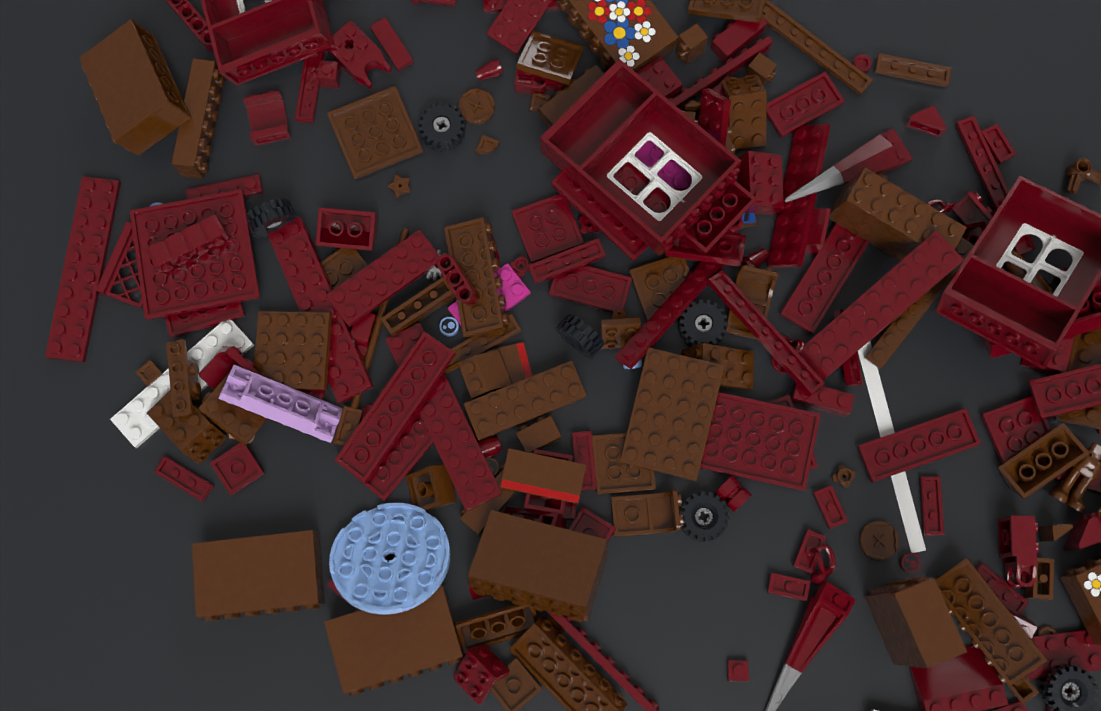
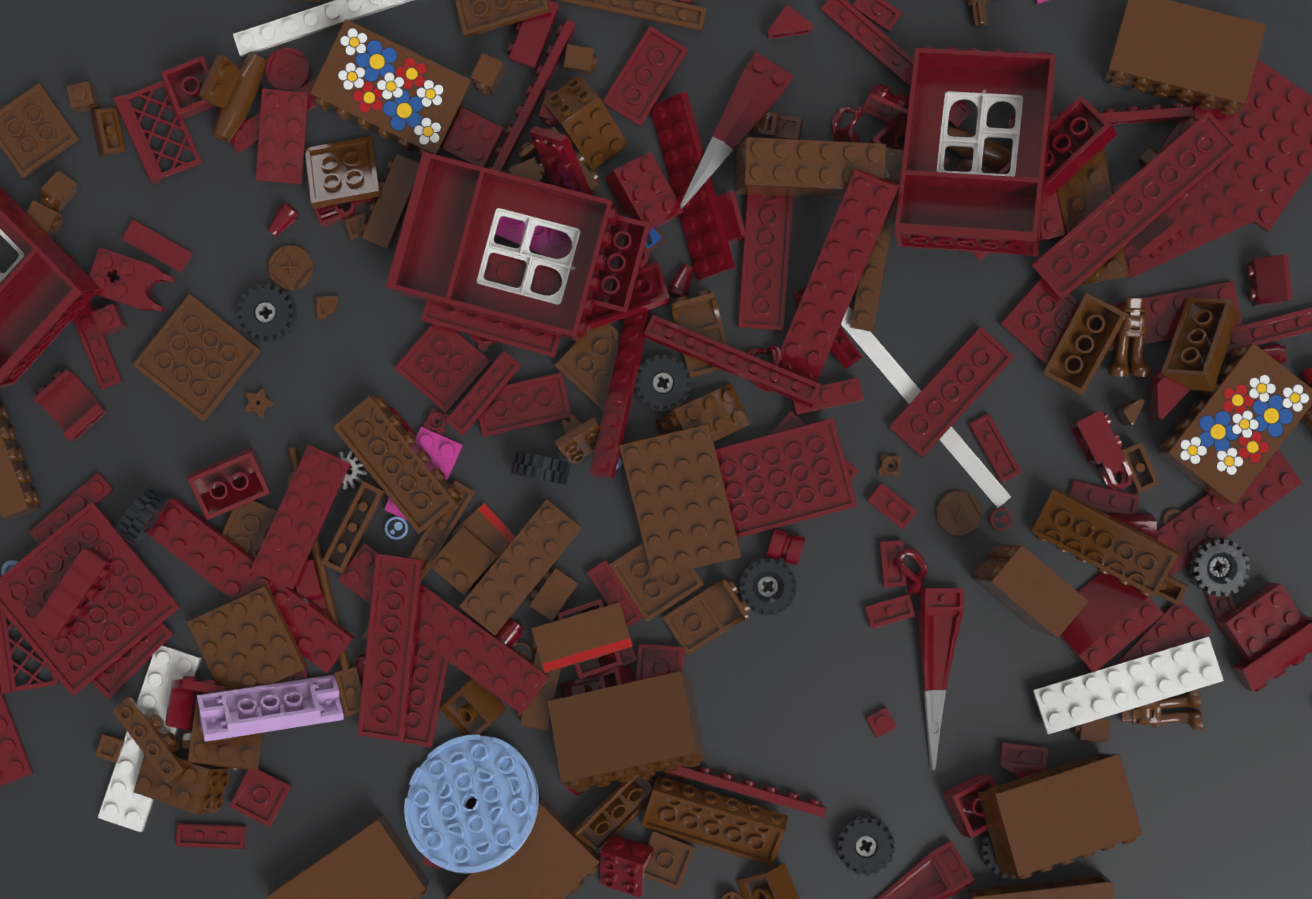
camera: 30 degrees left, 10 degrees up
(463, 285) = (390, 479): dark red beam -> none

